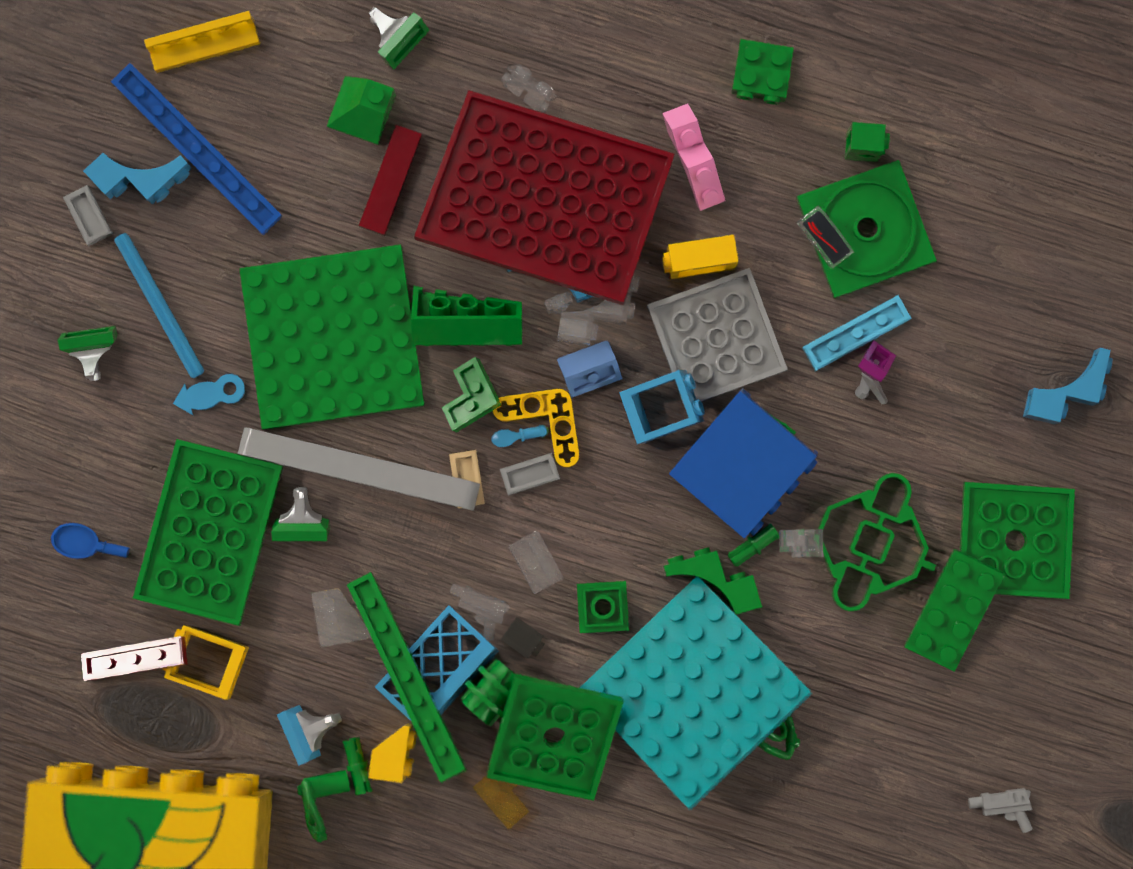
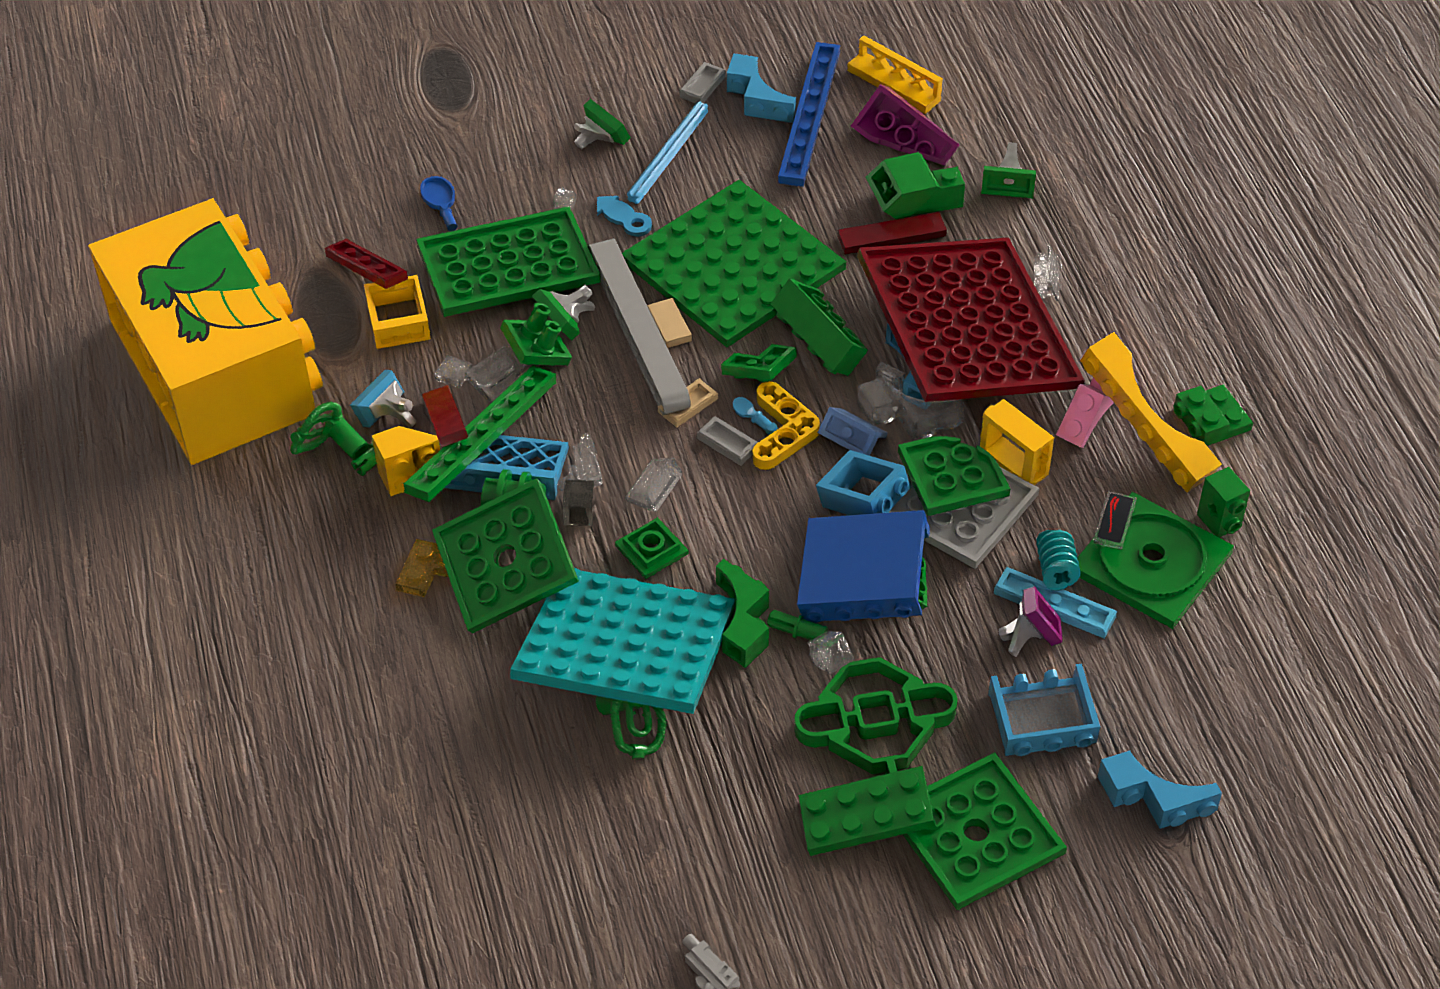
camera: 55 degrees right, 35 degrees down
(162, 436) = (564, 198): none -> clear bush
(268, 81) = (899, 125): none -> magenta wedge
(303, 651) = (452, 371): none -> clear tile
(326, 568) = (536, 339): none -> green plate
(354, 139) = (902, 184): none -> green slope
(366, 696) = (445, 416): none -> dark red tile
(368, 438) = (670, 323): none -> tan tile
(697, 329) = (952, 473): none -> green plate
(698, 134) = (1183, 456): none -> yellow arch
(830, 308) = (1057, 559): none -> teal piece
(952, 418) = (1045, 713): none -> window

